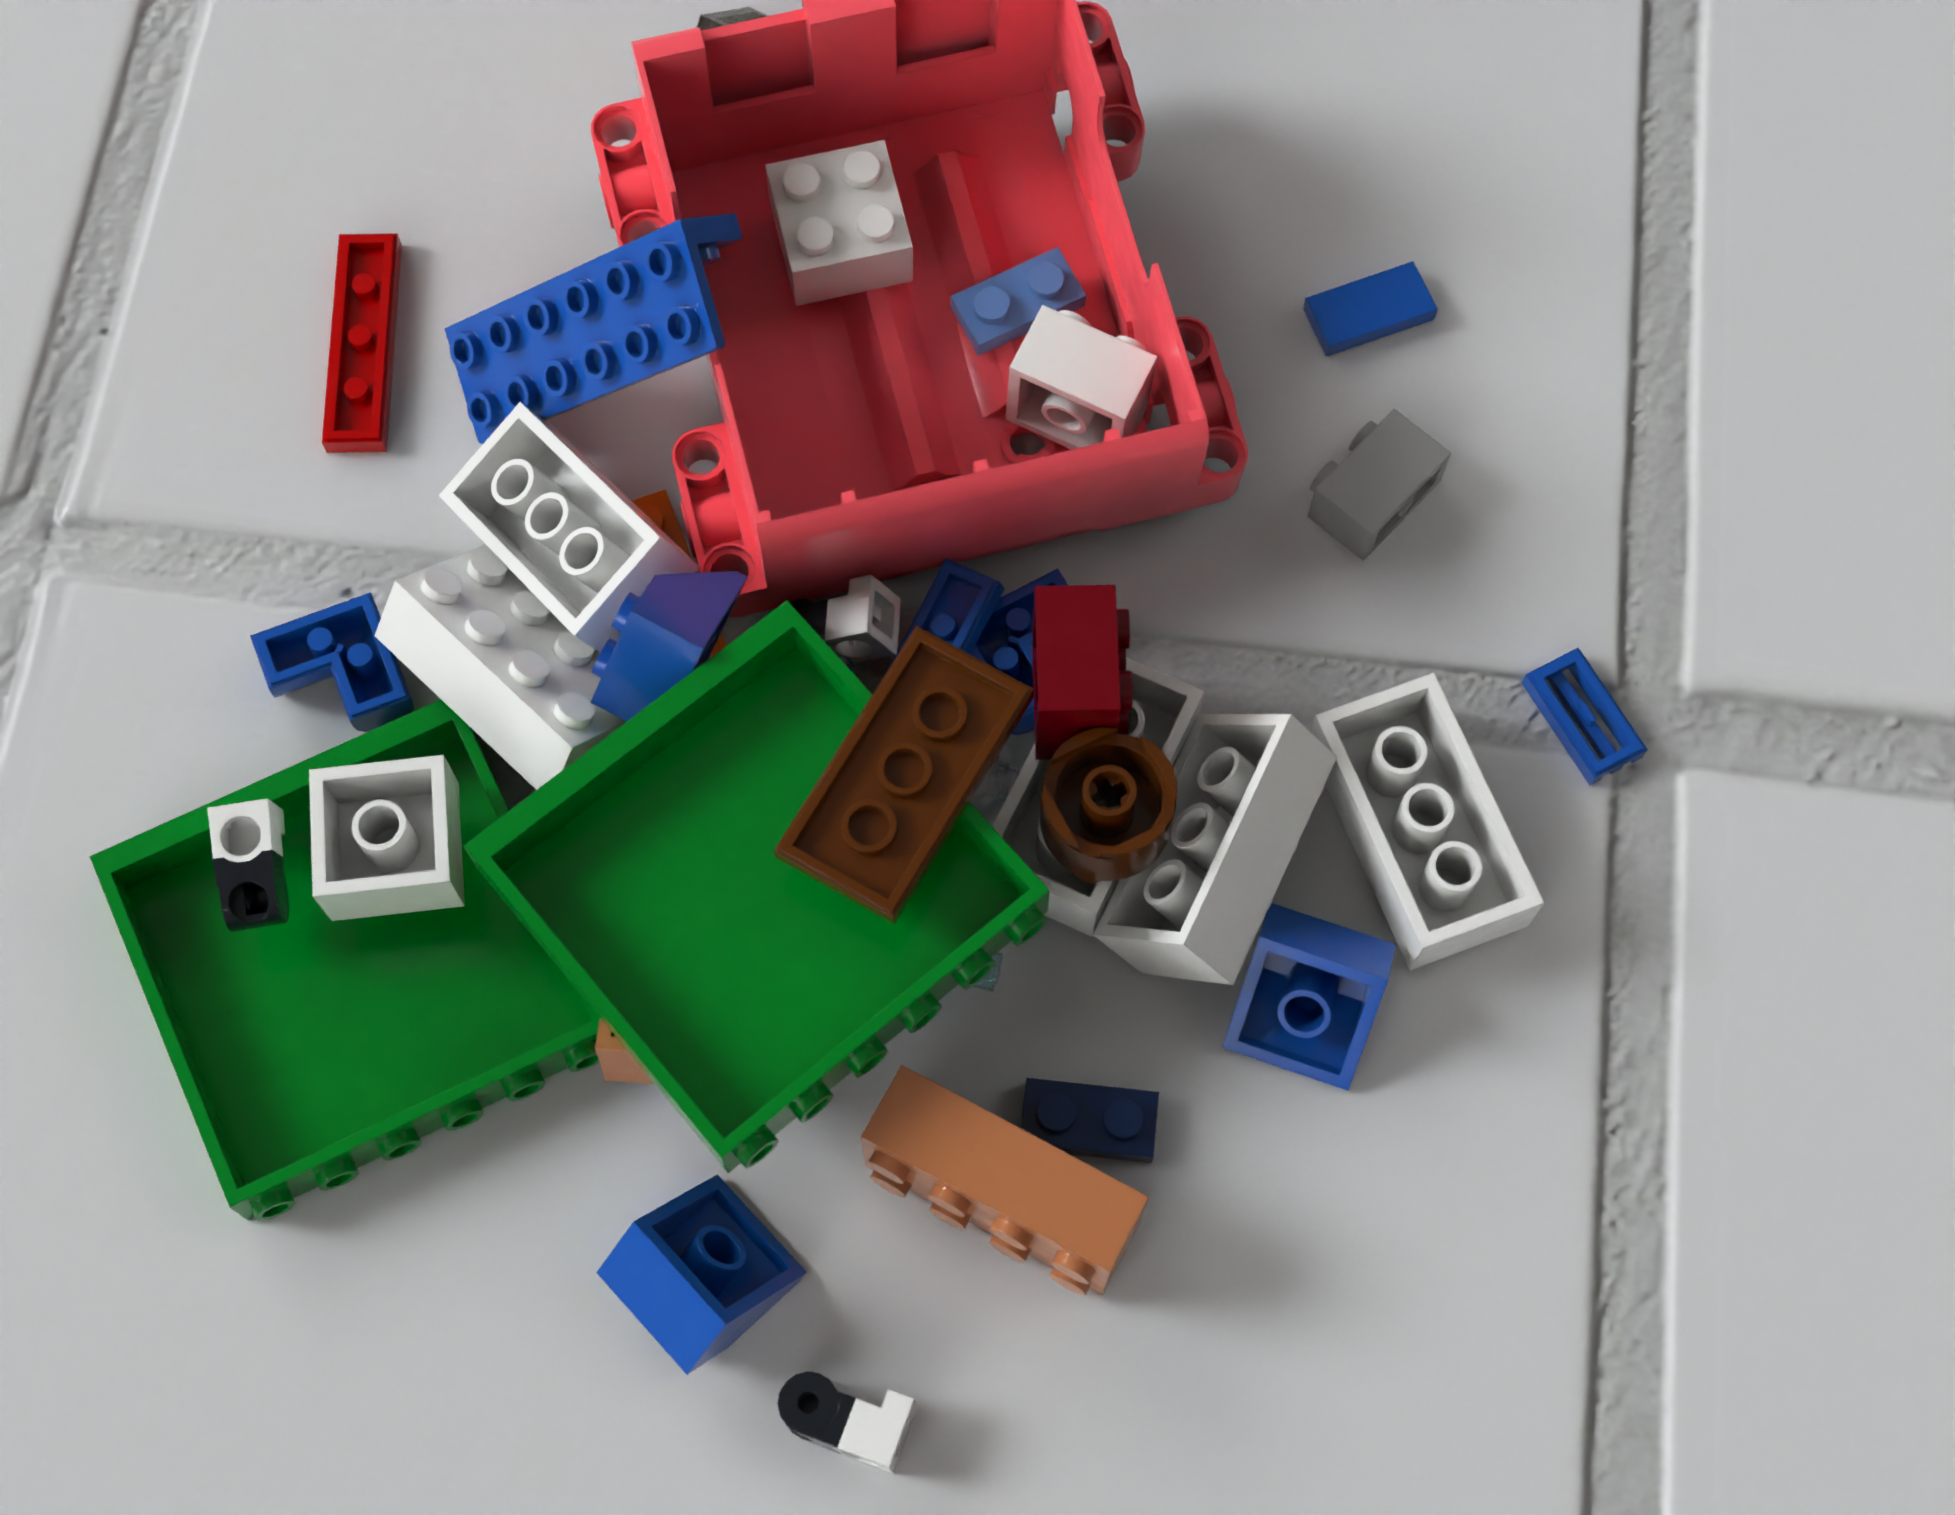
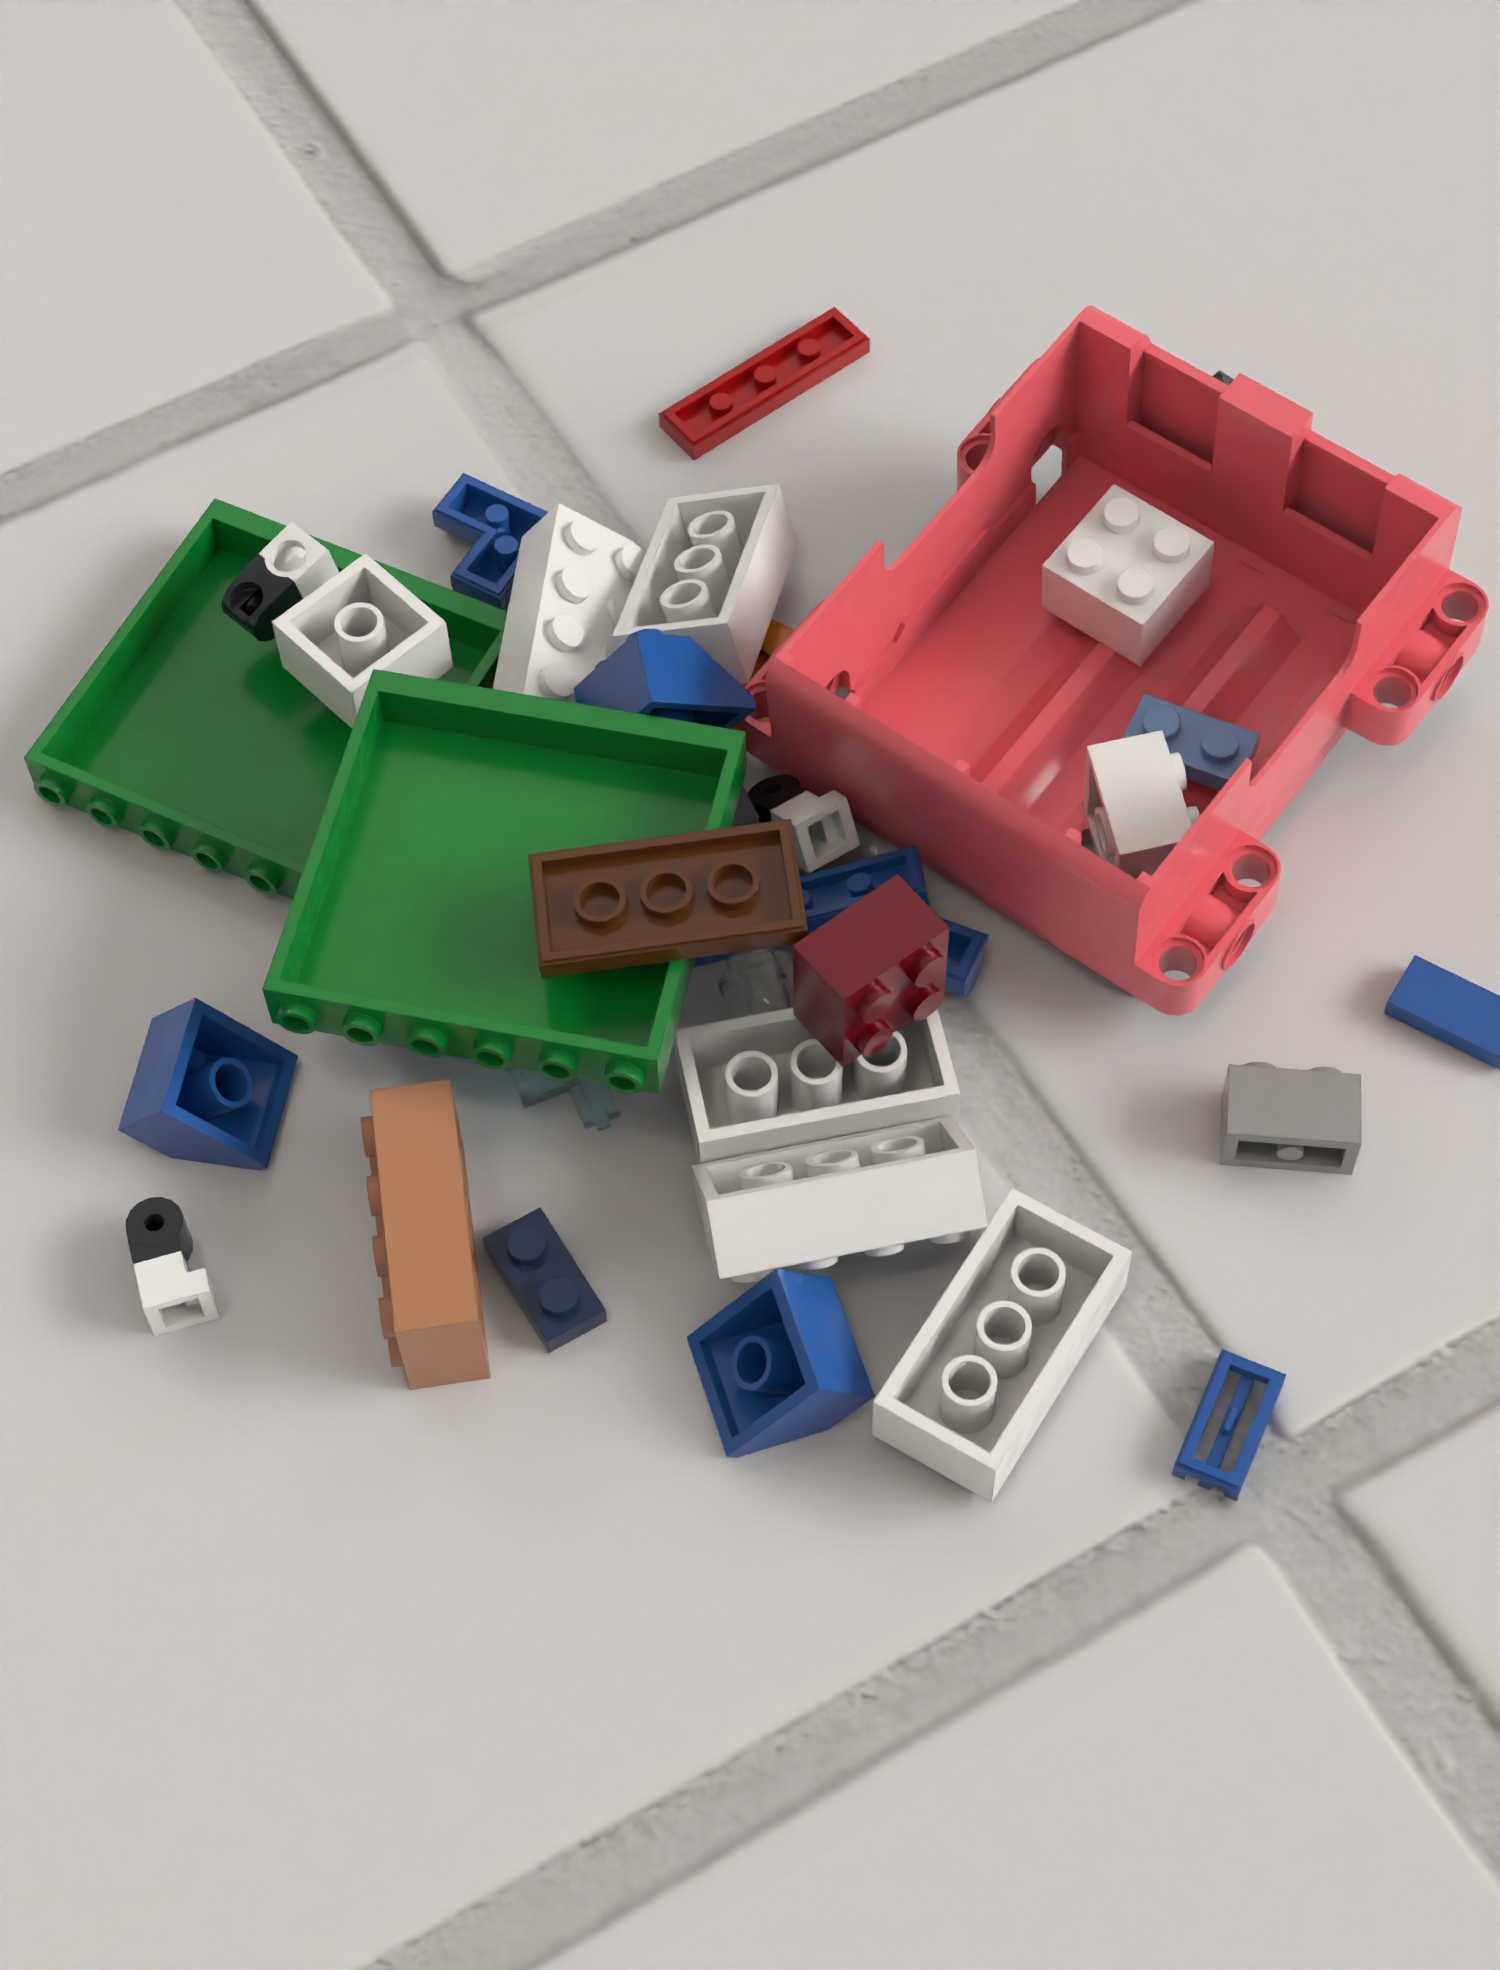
camera: 55 degrees right, 10 degrees down
(594, 326) = (873, 467): blue bracket -> none
(1121, 772) = (782, 1072): reddish brown brick -> none

